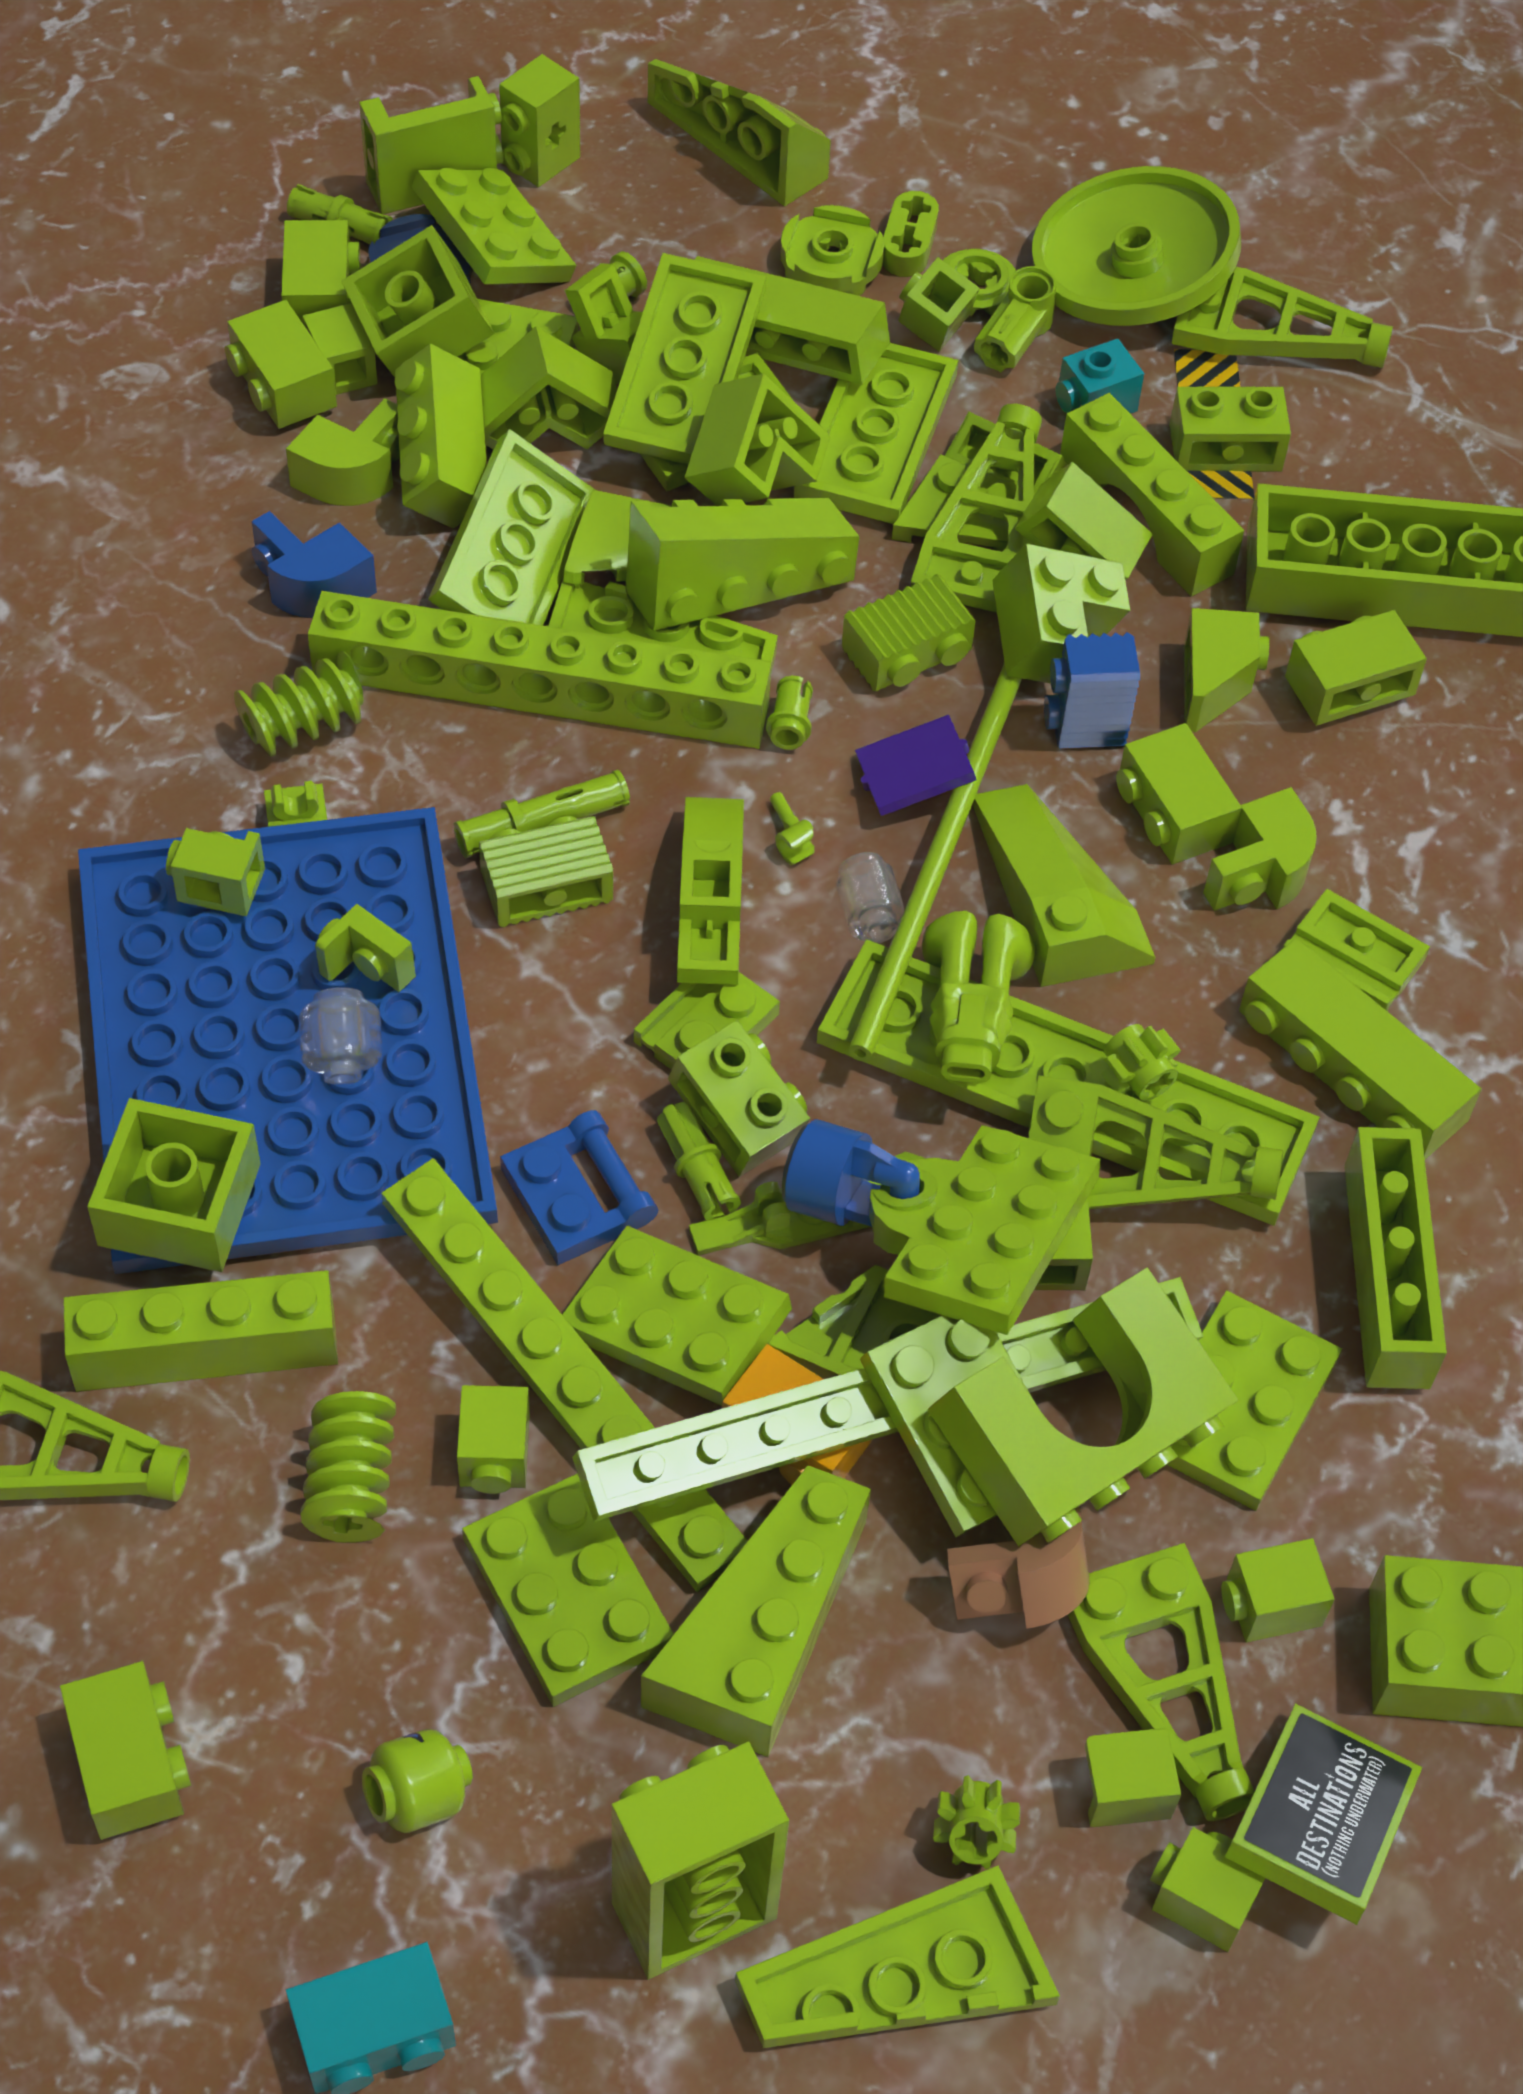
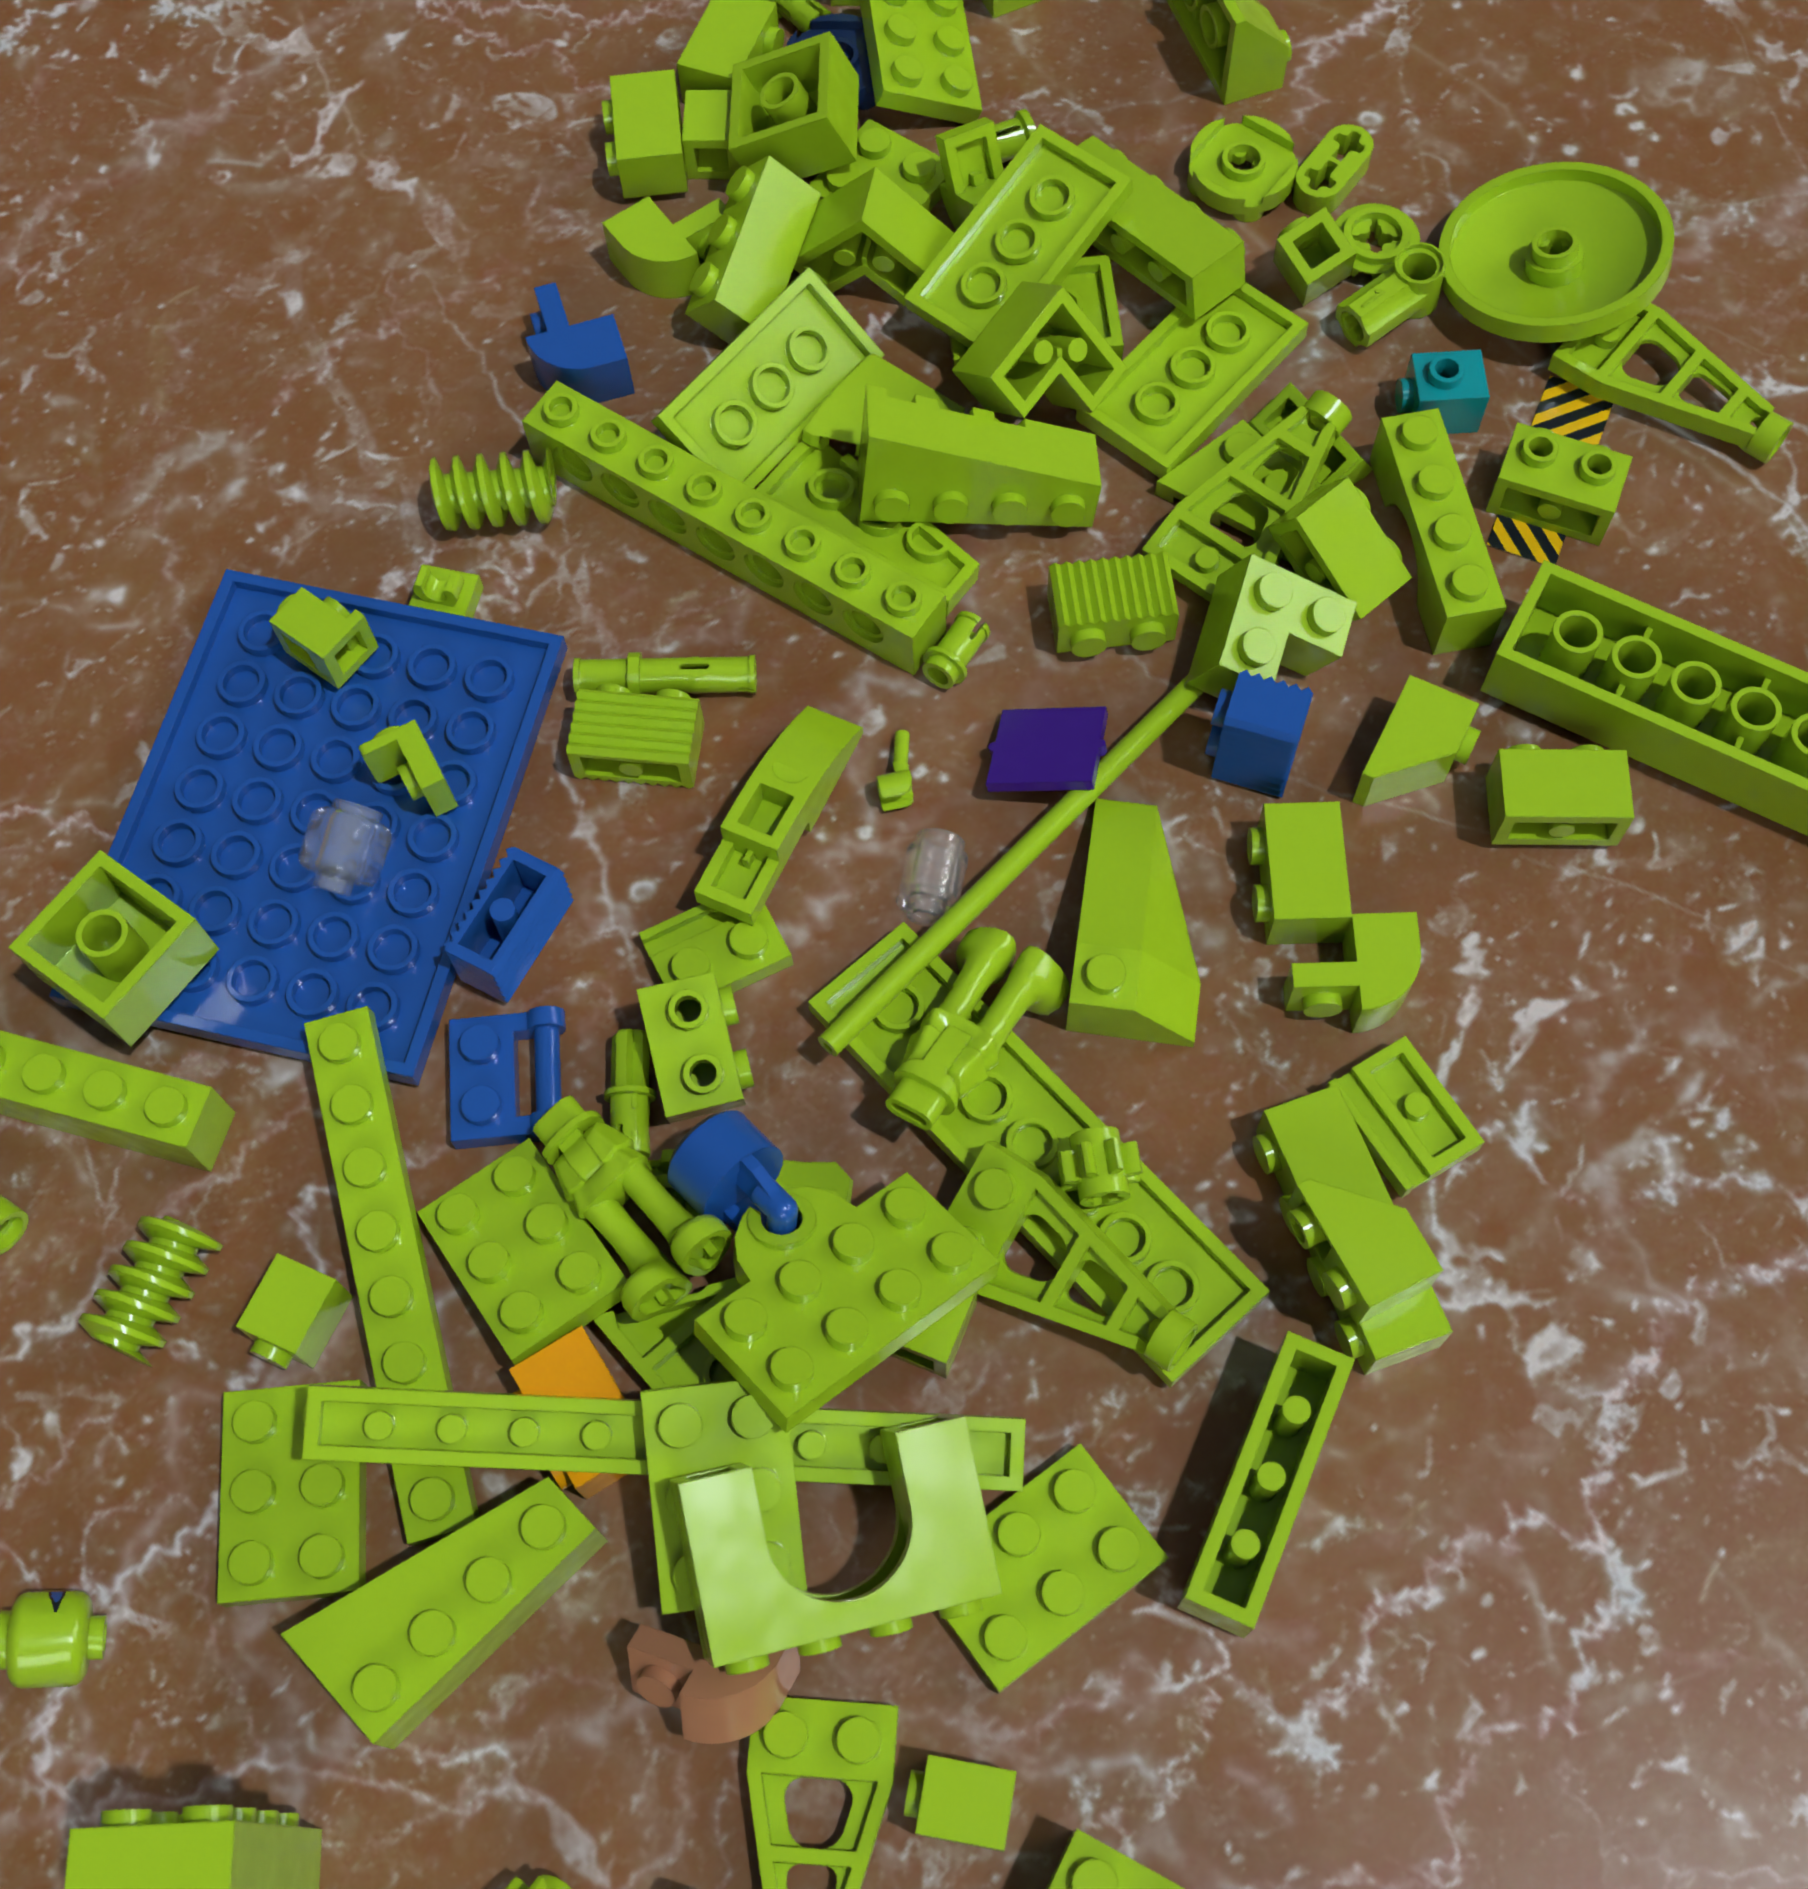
camera: 30 degrees right, 10 degrees up
(520, 1054) = (509, 924): none -> blue brick
(716, 1220) = (600, 1175): none -> lime piece
(1383, 1041) = (1366, 1246): none -> lime slope

